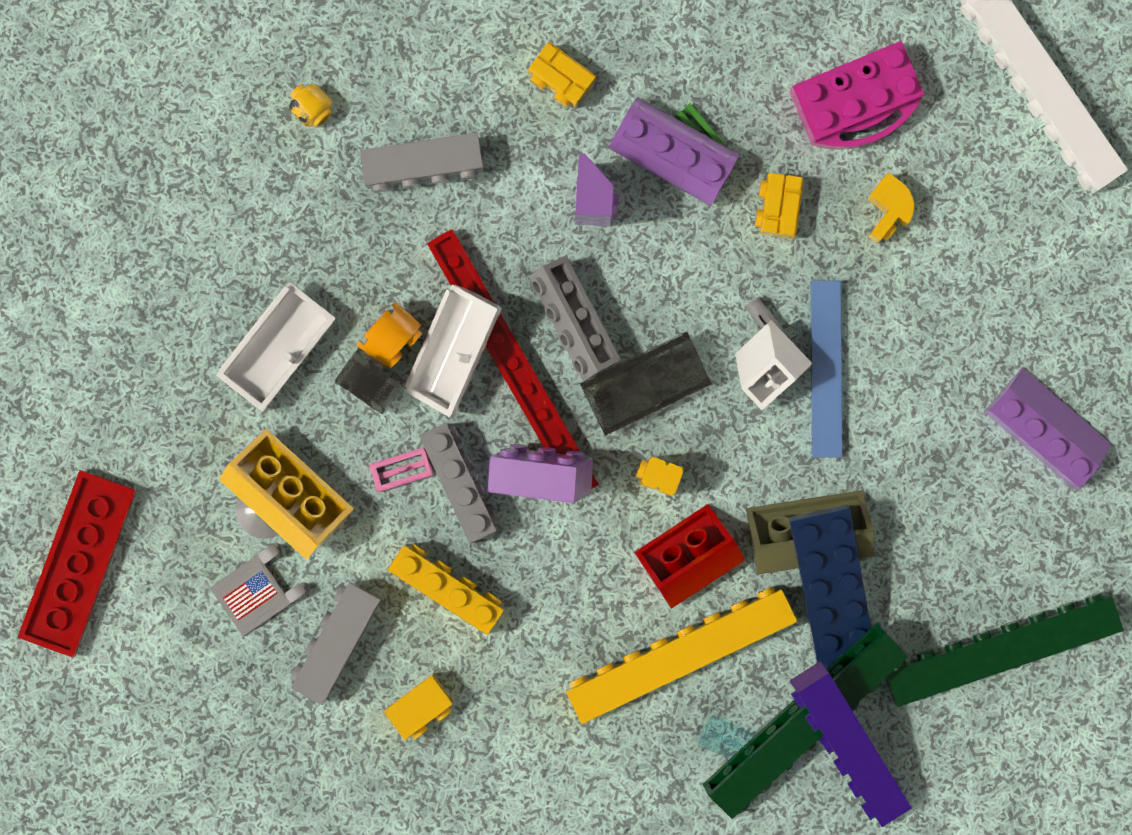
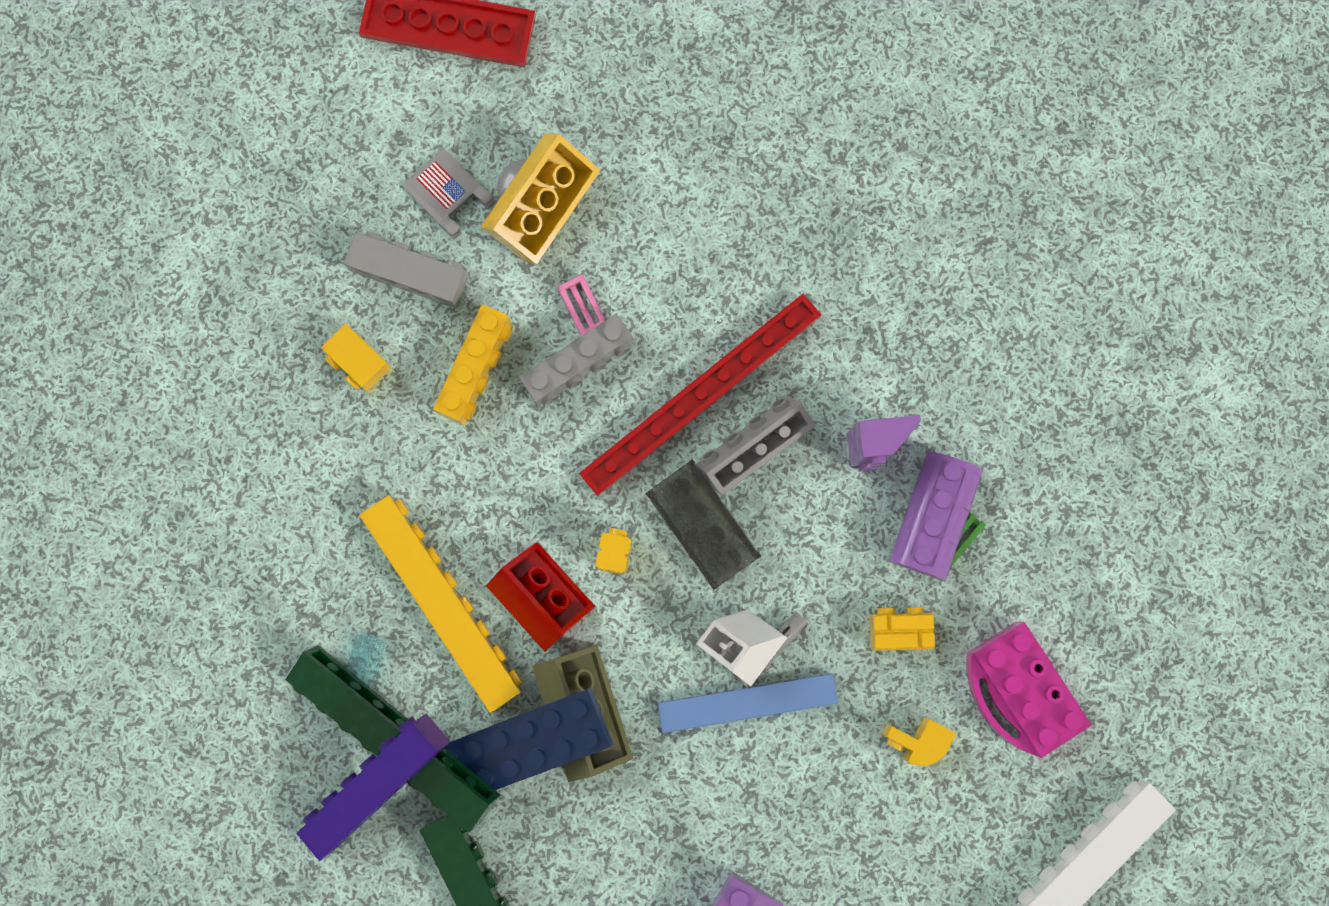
camera: 80 degrees right, 5 degrees down
(275, 346) = (680, 167): white container -> none
(310, 105) = (914, 165): yellow head -> none
(370, 381) = (660, 259): clear smoke brick -> none
(390, 334) = (708, 270): light orange brick -> none
(422, 161) = (881, 276): light grey brick -> none
(452, 349) = (705, 331): white container -> none
(540, 473) = (597, 434): medium lavender brick -> none
(561, 75) = (989, 395): yellow brick -> none

